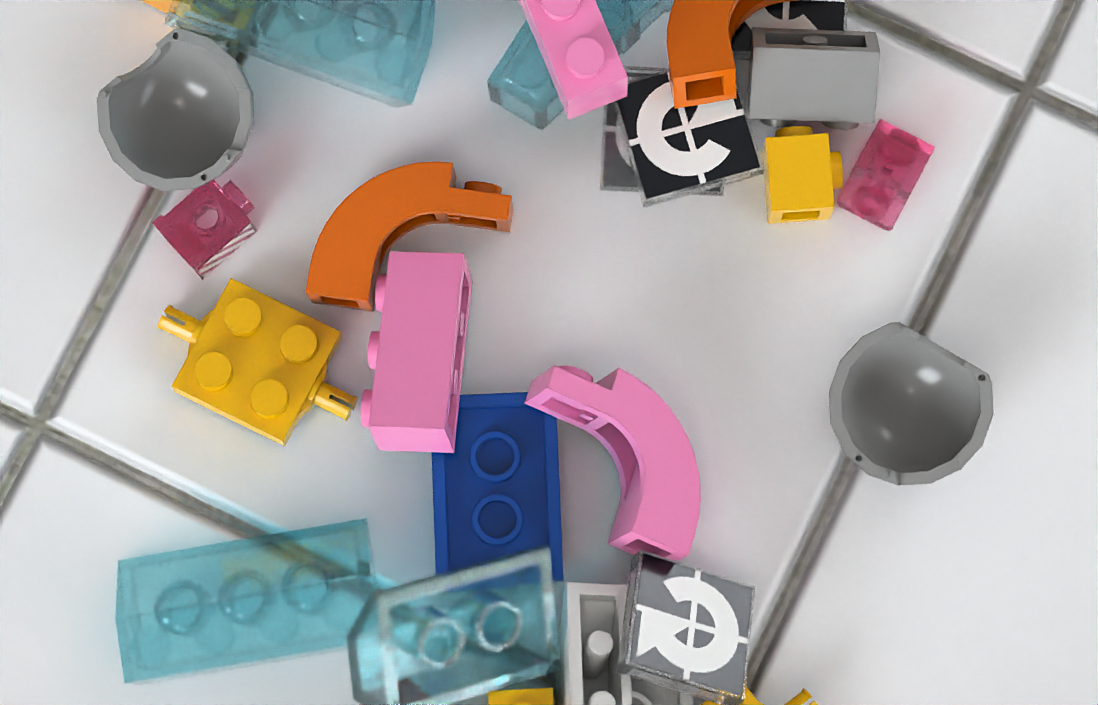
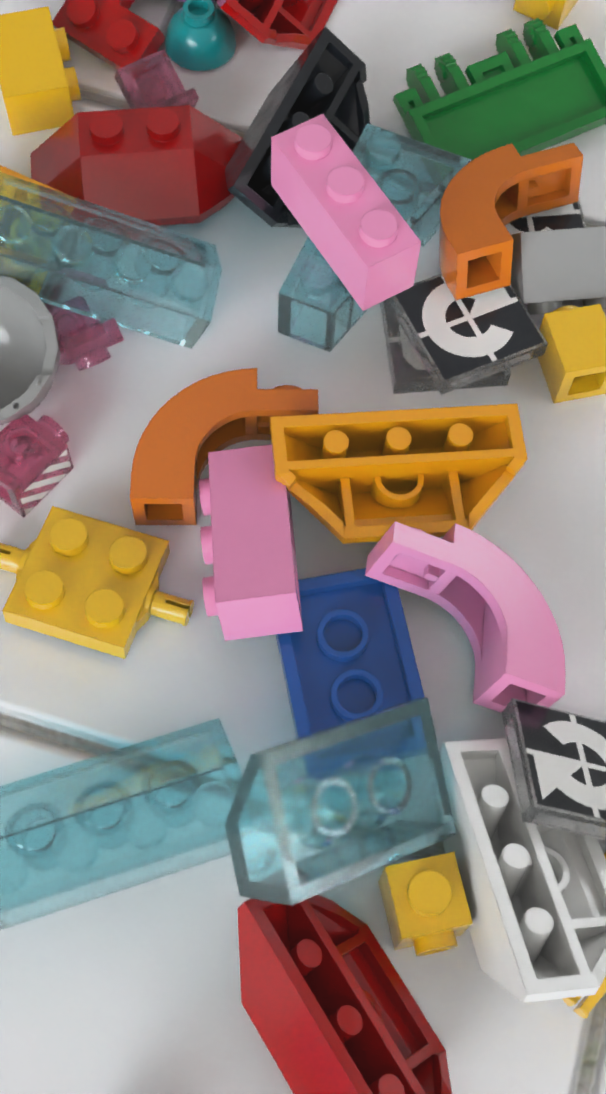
camera: 20 degrees left, 15 degrees down
(280, 95) = (84, 338): none -> clear pink bracket
(576, 298) = (398, 466): none -> light orange wedge

